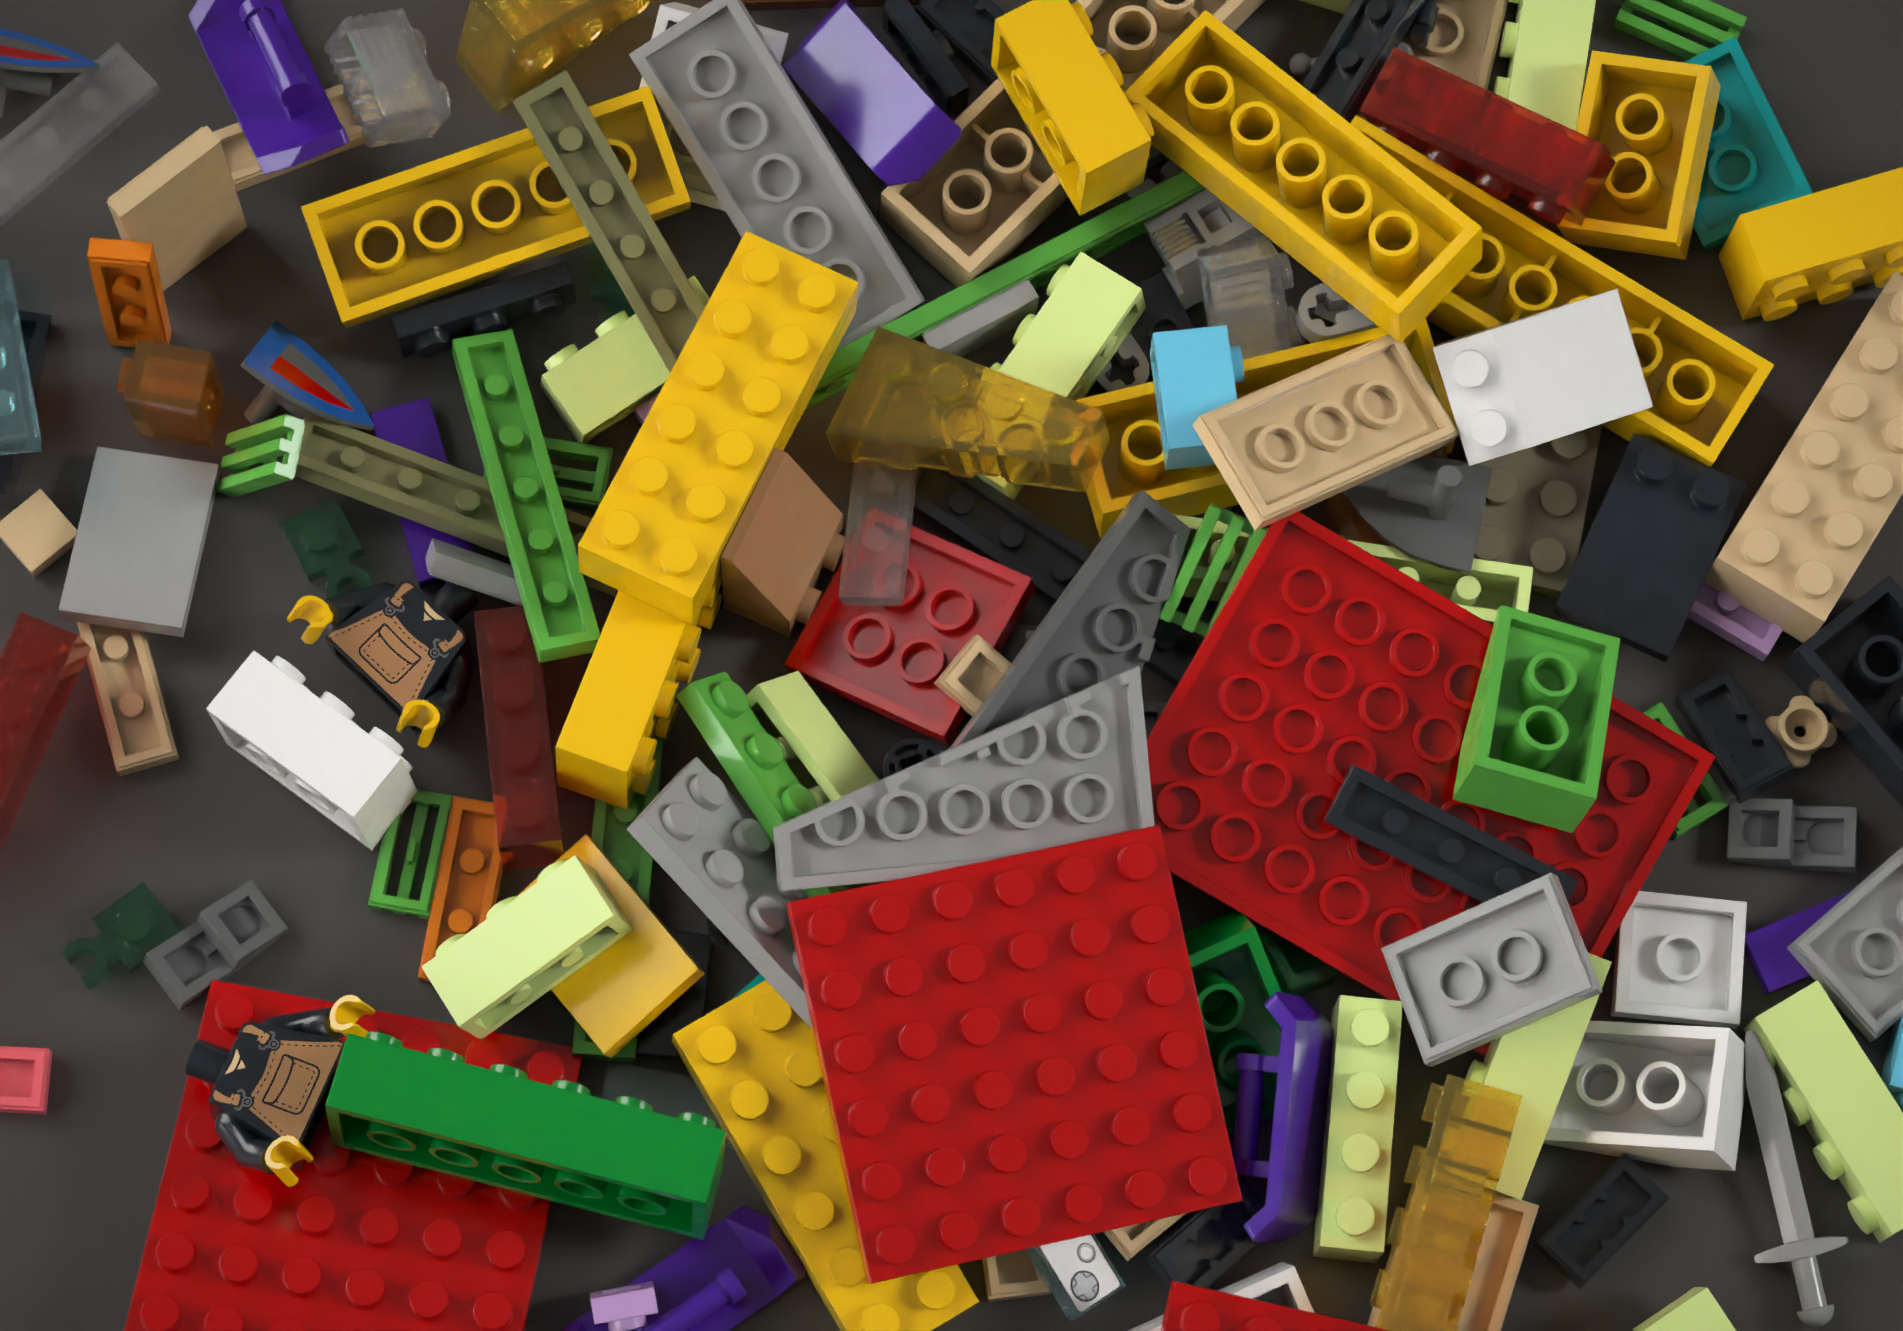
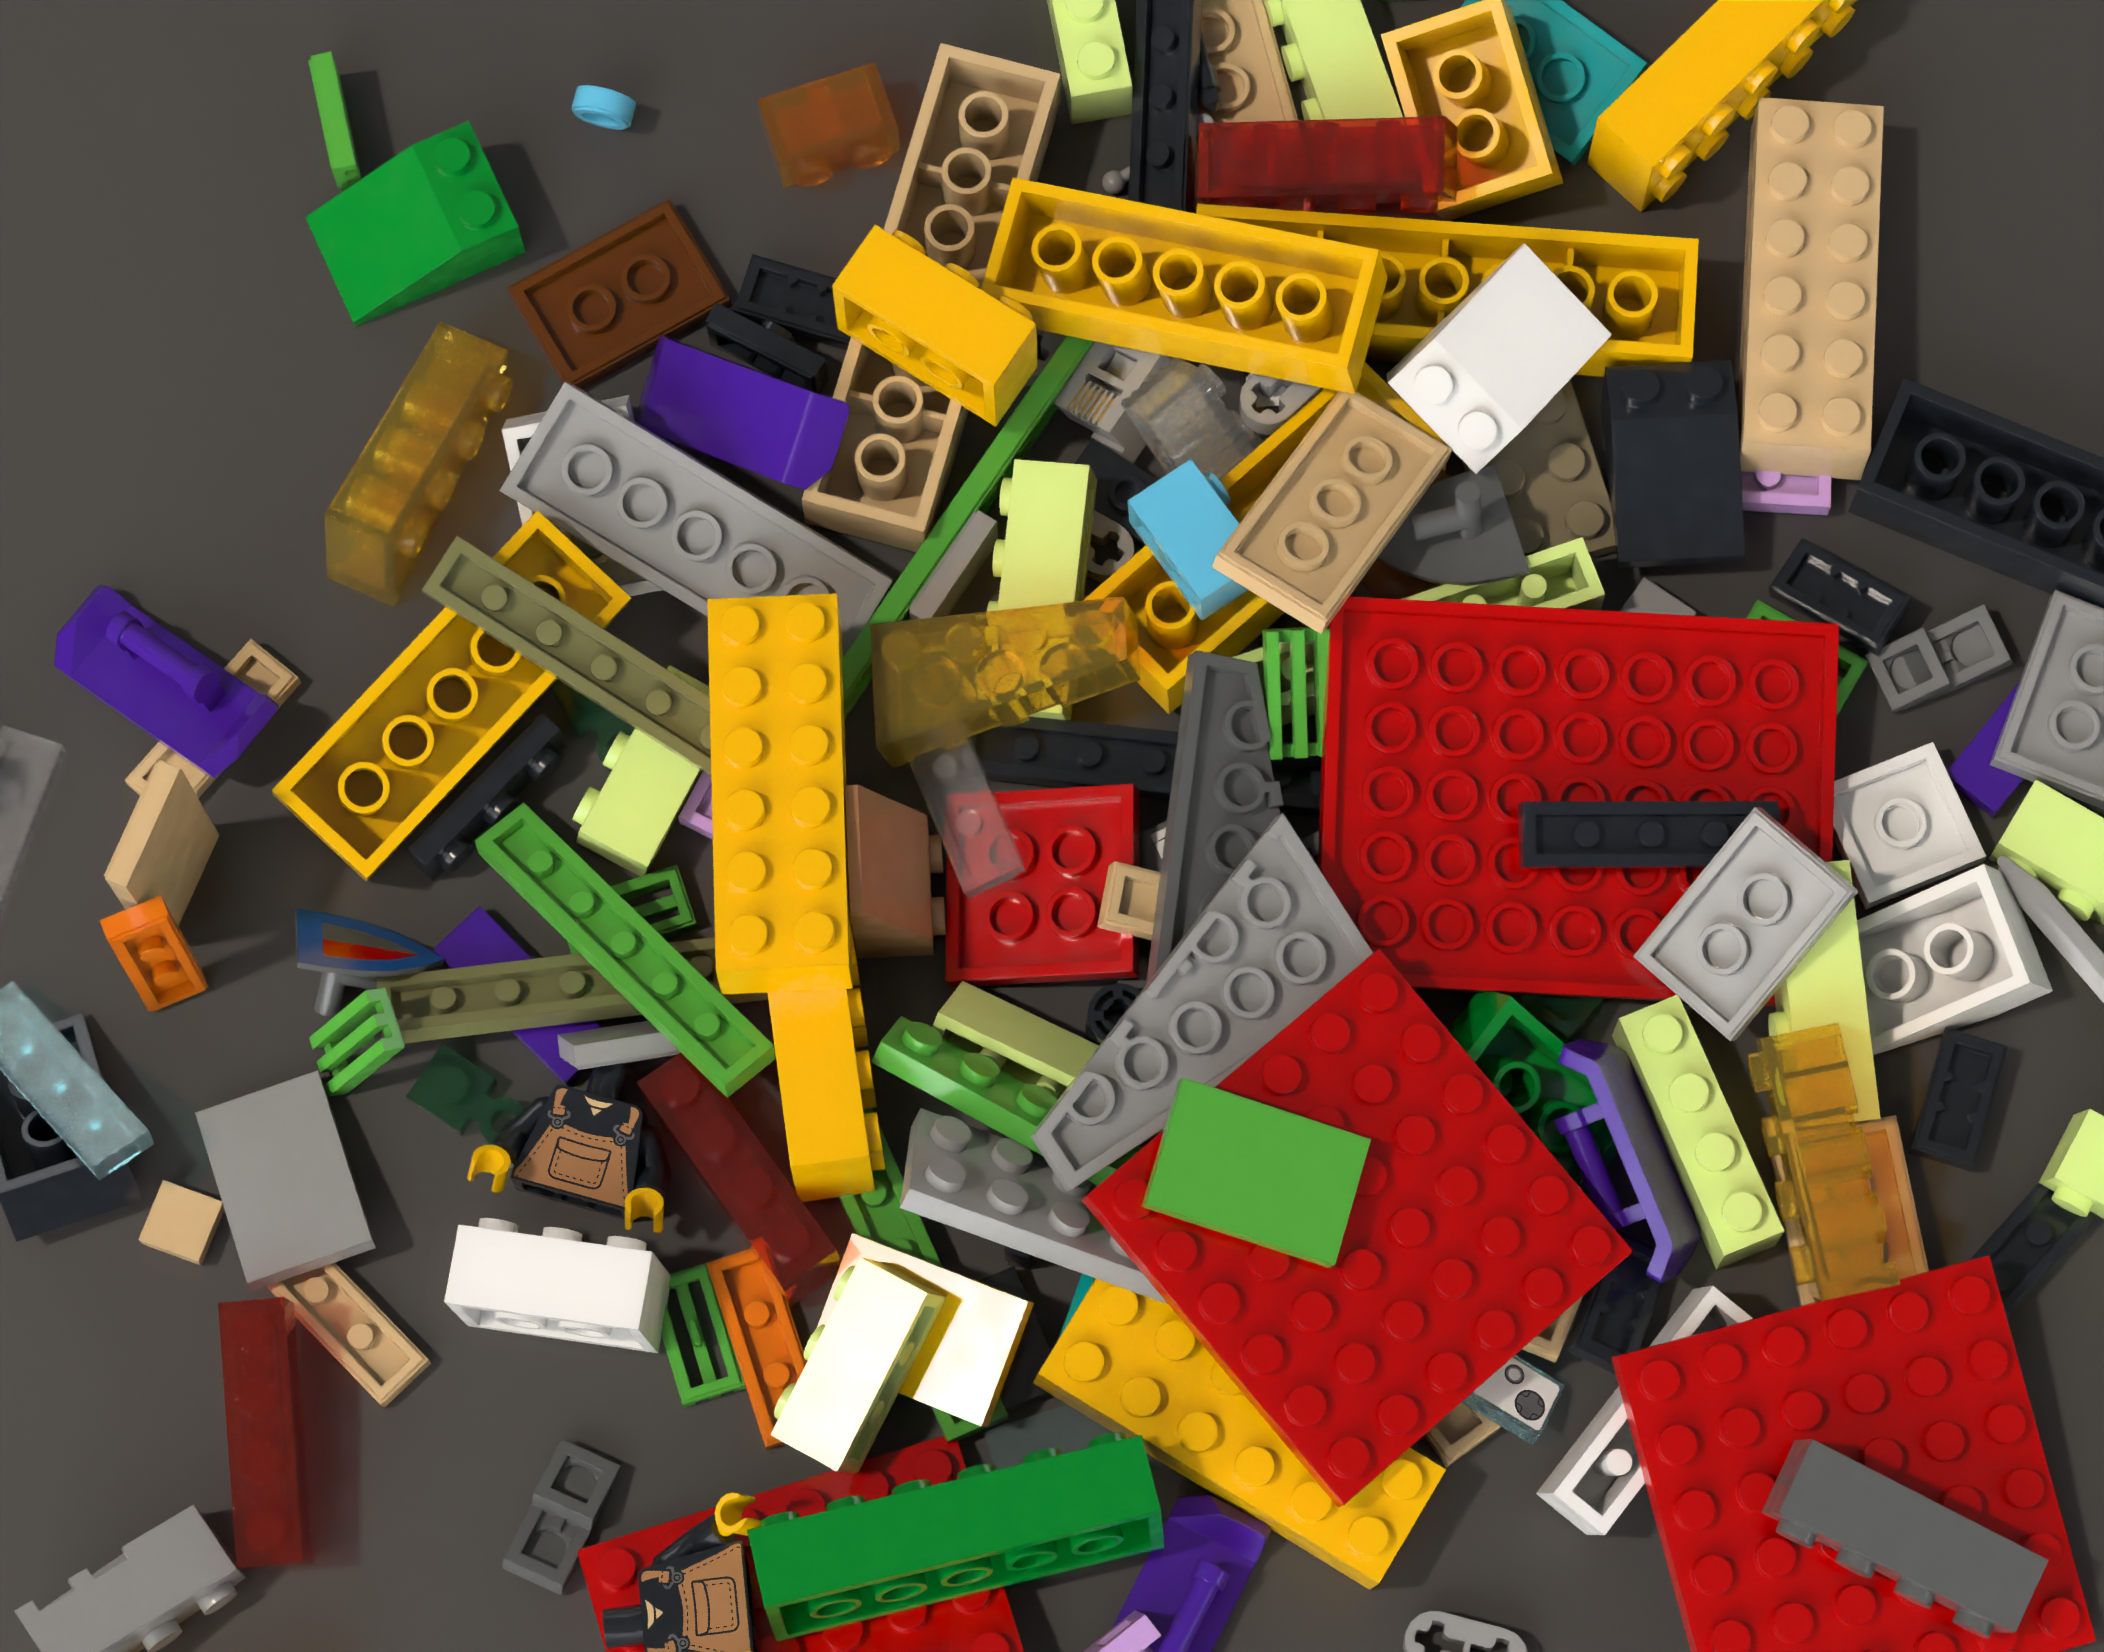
camera: 20 degrees left, 0 degrees up
(128, 932) = (474, 1547): clear green plate -> none
(172, 392) = (241, 1026): clear orange brick -> none
(388, 78) = (279, 628): clear brick -> none
(945, 959) = (1256, 1173): none -> bright green tile
(1538, 720) = (1667, 674): bright green slope -> none
(1817, 730) = (1903, 546): tan plate -> none

